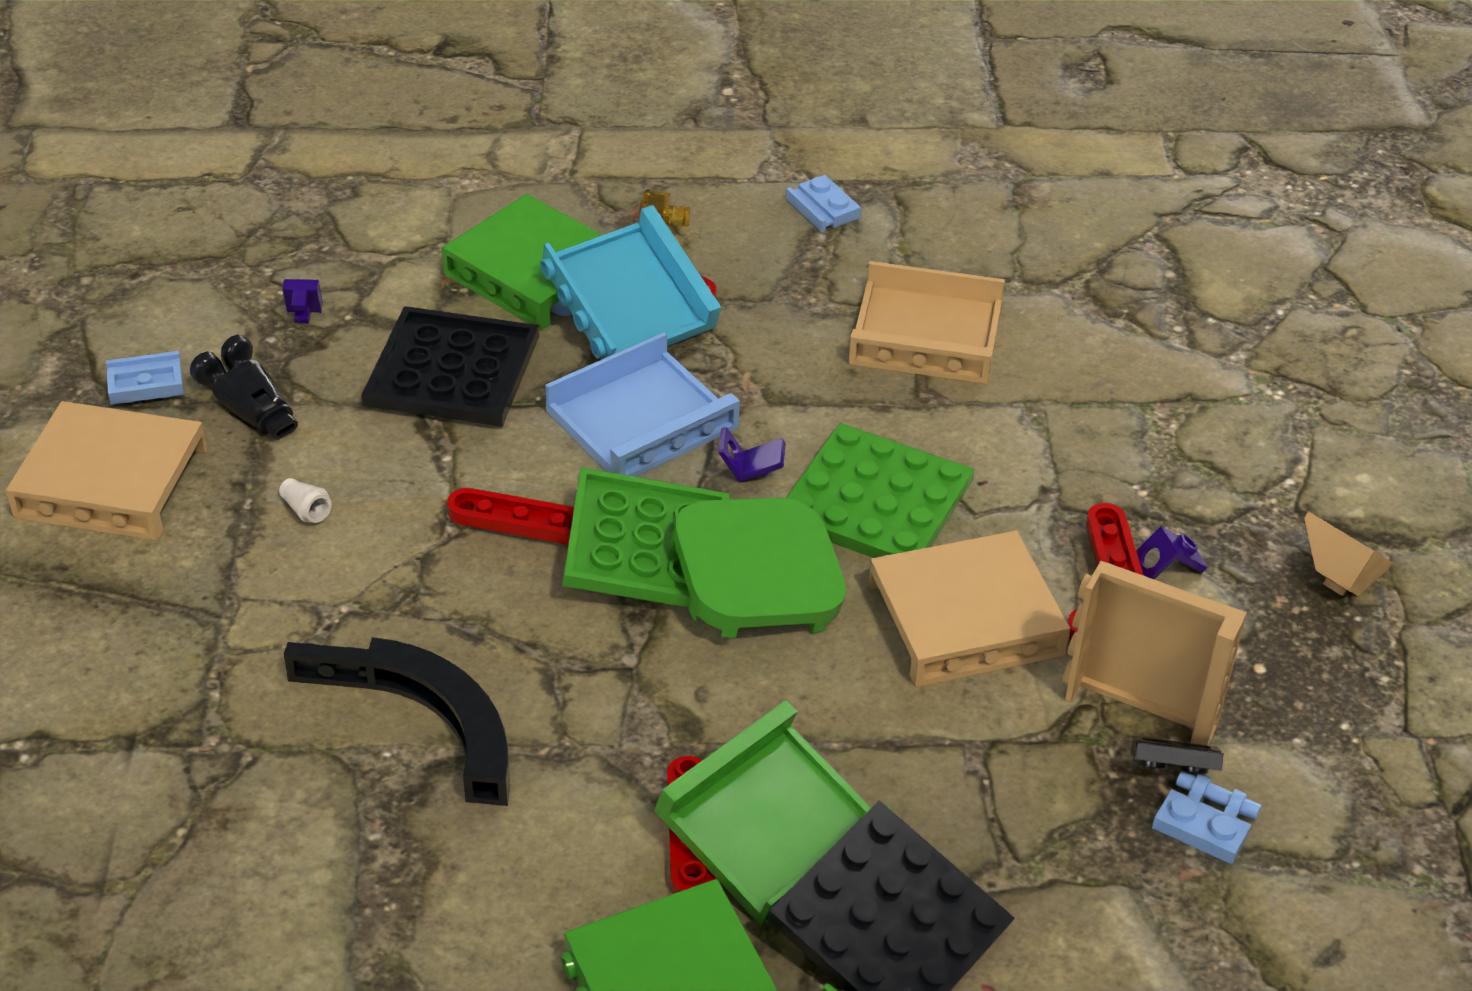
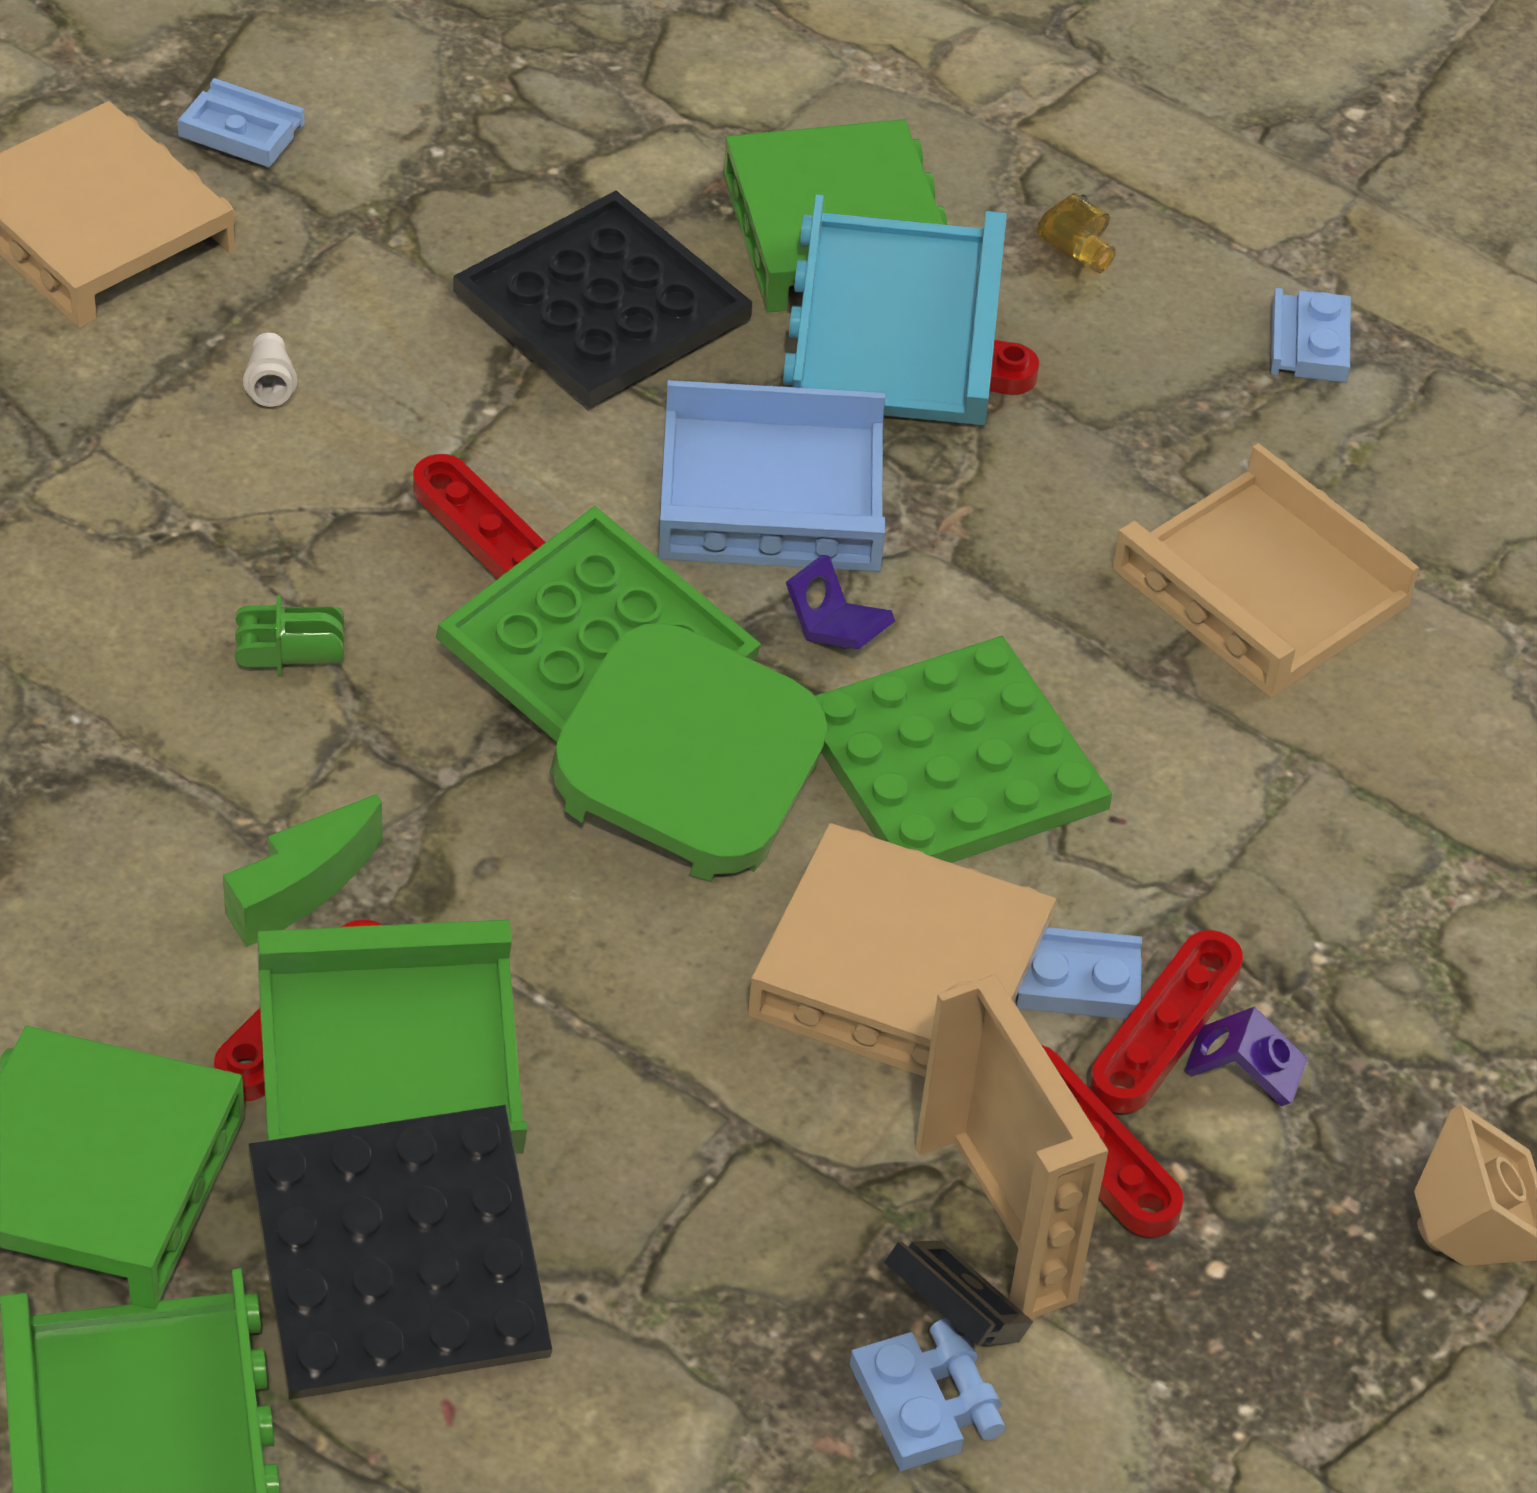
camera: 35 degrees right, 5 degrees up
(245, 387) = (336, 196): black piece -> none
(302, 298) = (509, 118): dark purple tile -> none
(429, 681) = (176, 764): black arch -> none
(470, 635) = (288, 635): none -> bright green arm
(613, 756) = (302, 868): none -> bright green slope
(1061, 560) = (1084, 974): none -> light blue plate

